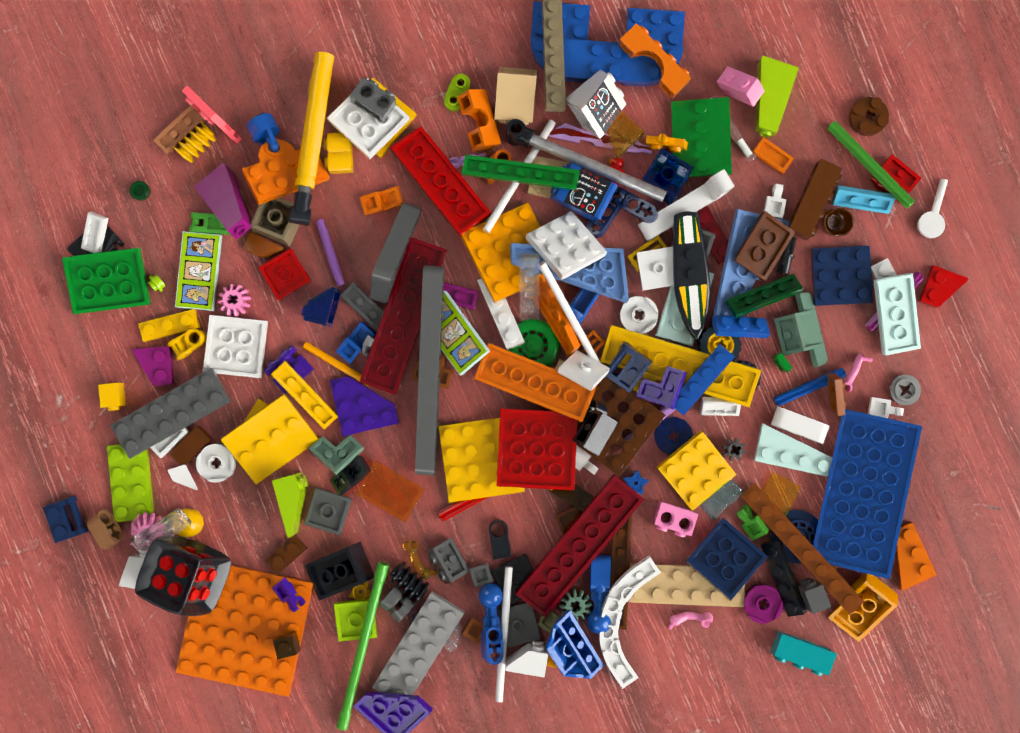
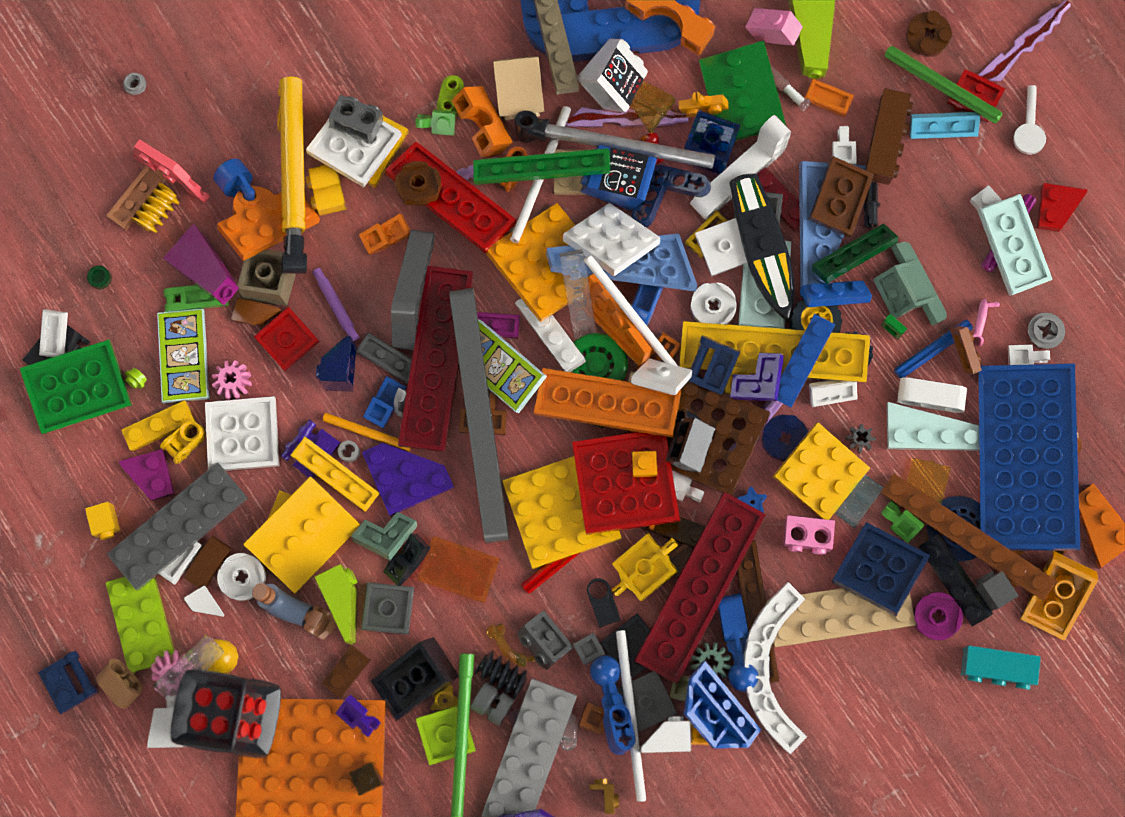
camera: 10 degrees left, 10 degrees down
(191, 24) = (132, 78): none -> light grey plate
(251, 497) = (289, 609): none -> piece
(323, 381) = (354, 455): none -> light grey bush
(420, 175) = (418, 195): none -> reddish brown plate
(445, 112) = (441, 122): none -> bright green plate
(475, 694) = (611, 799): none -> pearl gold bracket
(538, 520) = (644, 567): none -> yellow plate
(555, 439) = (644, 464): none -> light orange plate
(705, 618) = (839, 655): bright pink piece -> none
(838, 222) = (921, 155): reddish brown hair -> none
(841, 275) = (940, 216): dark blue plate -> none
(947, 140) = (1025, 43): none -> lavender sword

